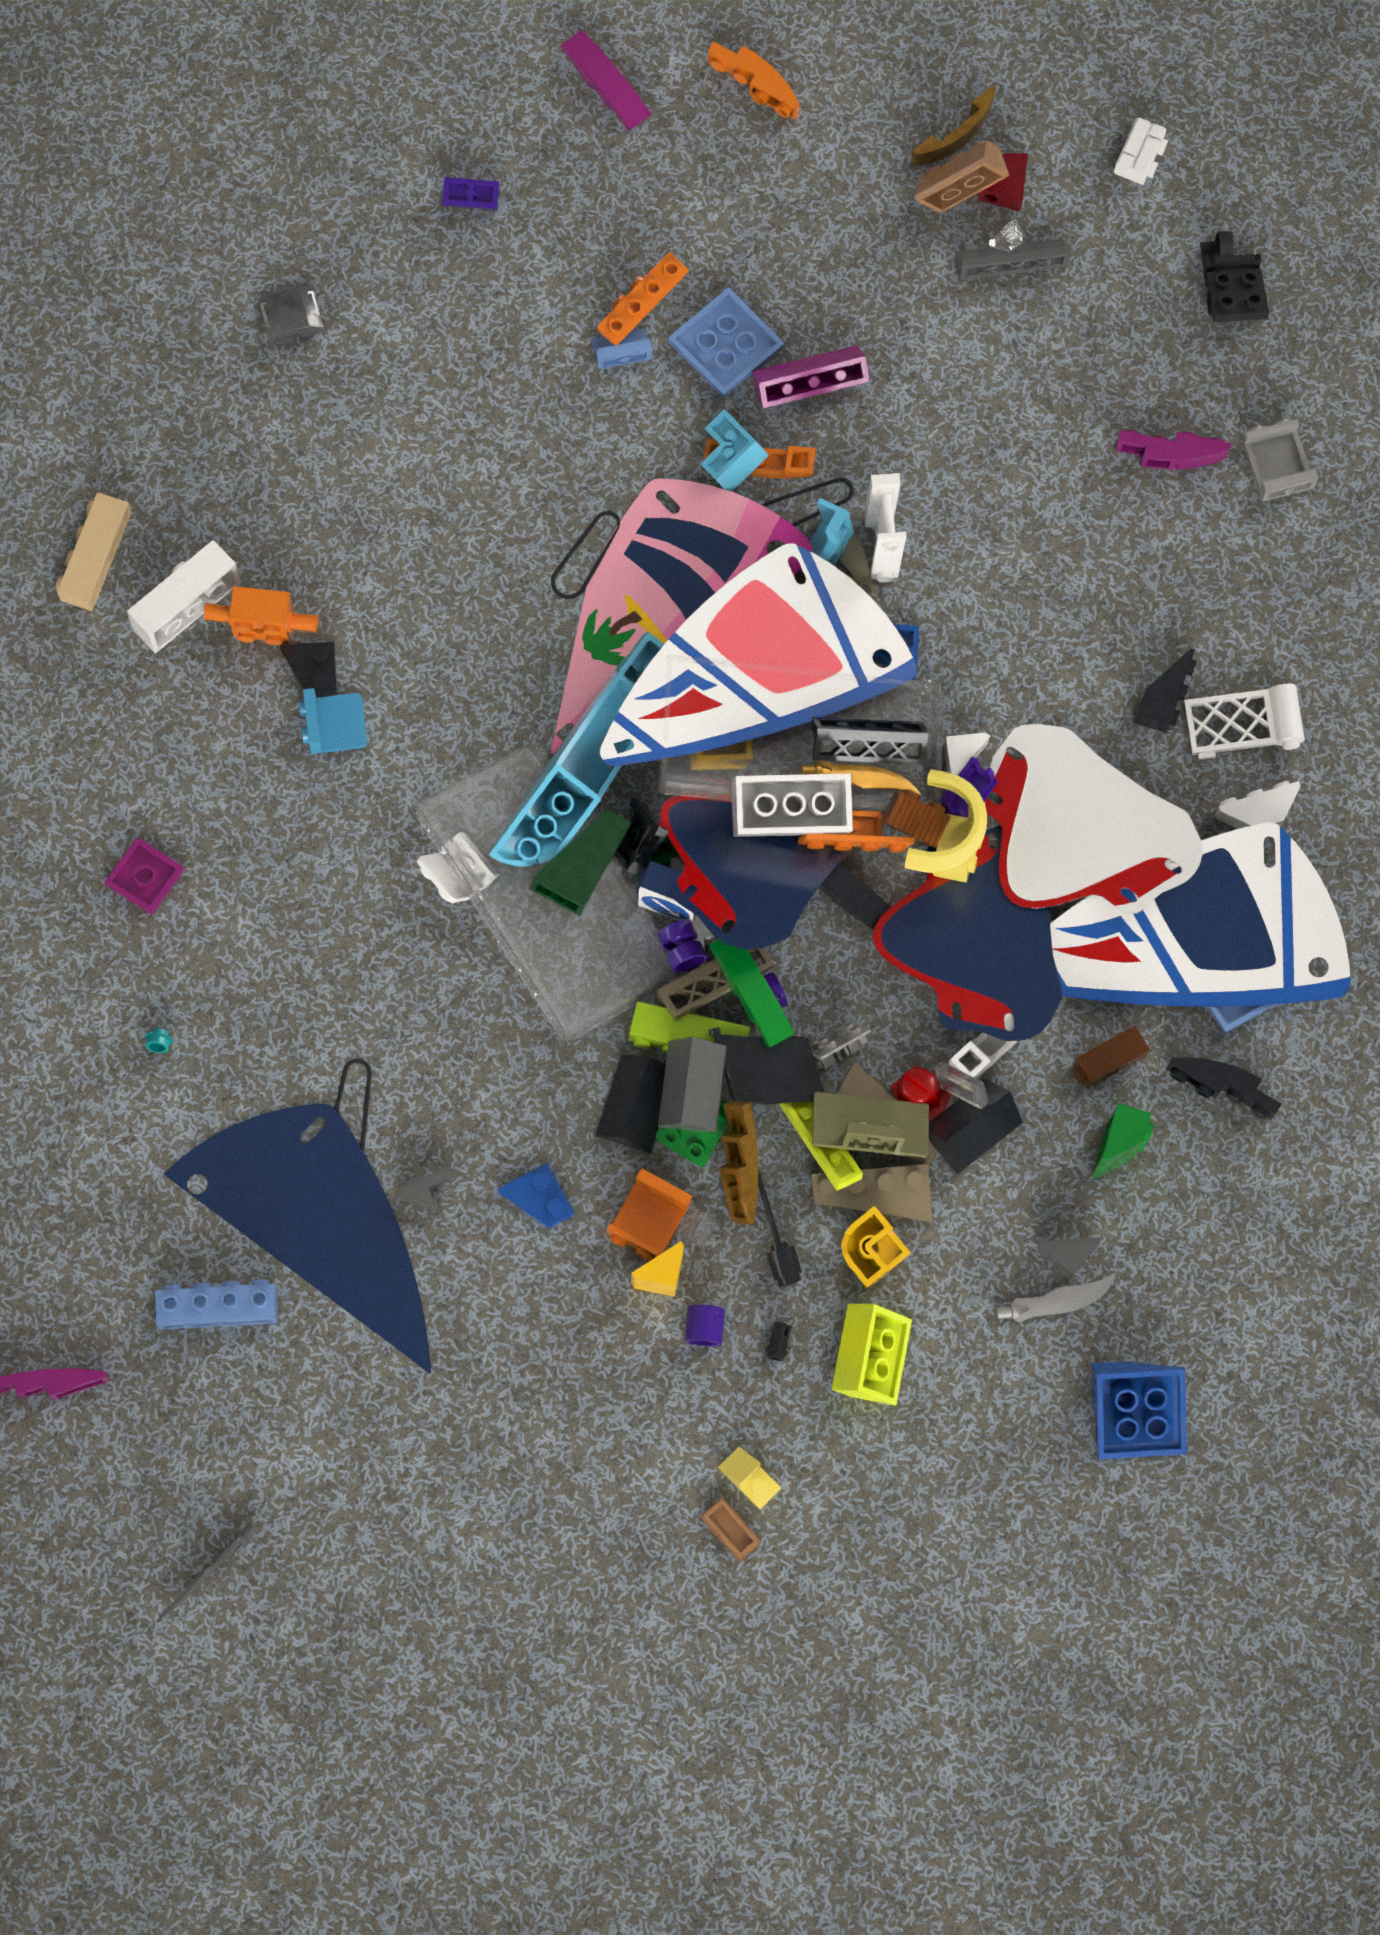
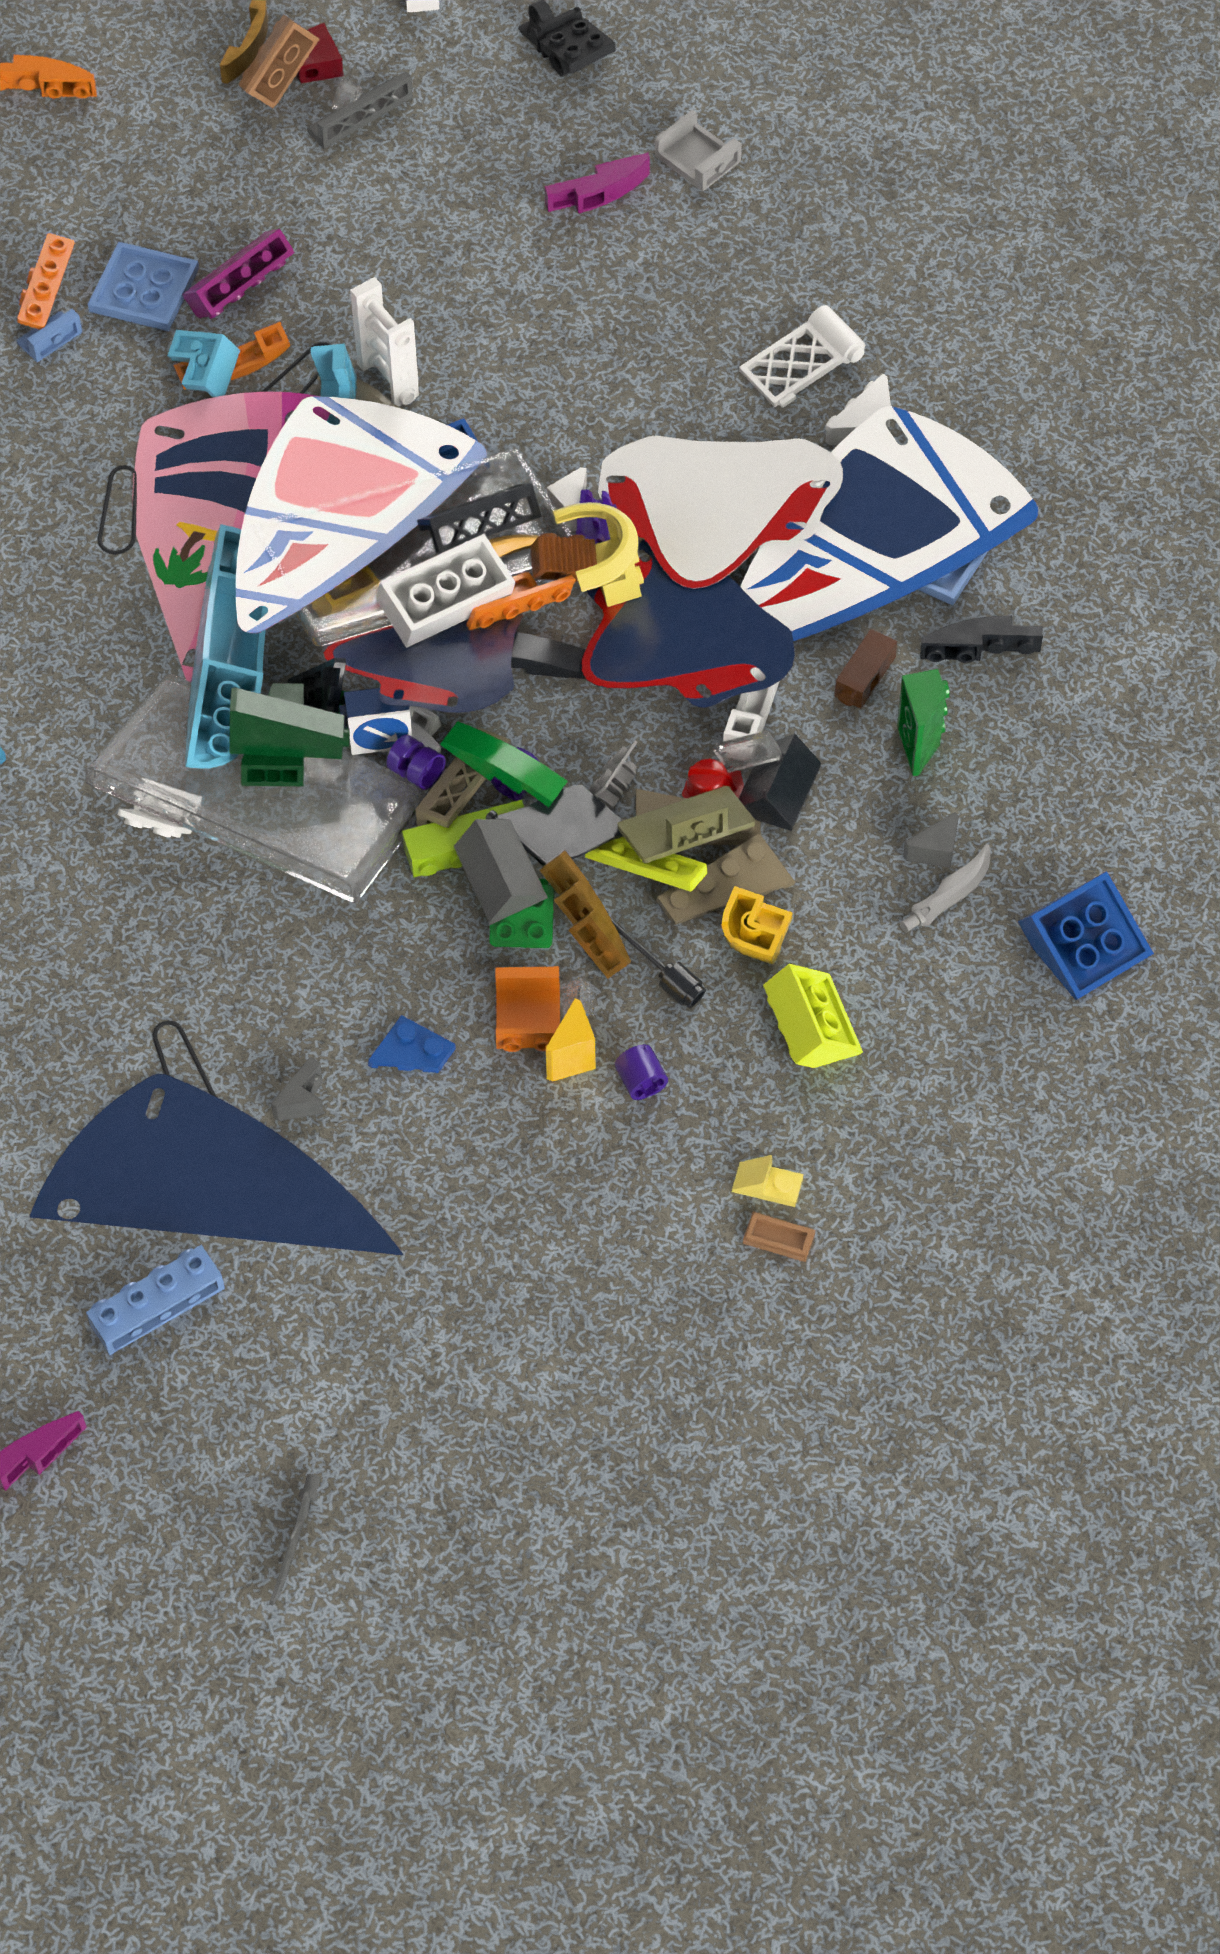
camera: 25 degrees left, 15 degrees down
(583, 868) = (284, 728): none -> dark green slope
(634, 1103) = (452, 922): black slope -> none
(779, 1340) = (721, 1059): black pin -> none
(1161, 697) = (719, 372): black slope -> none

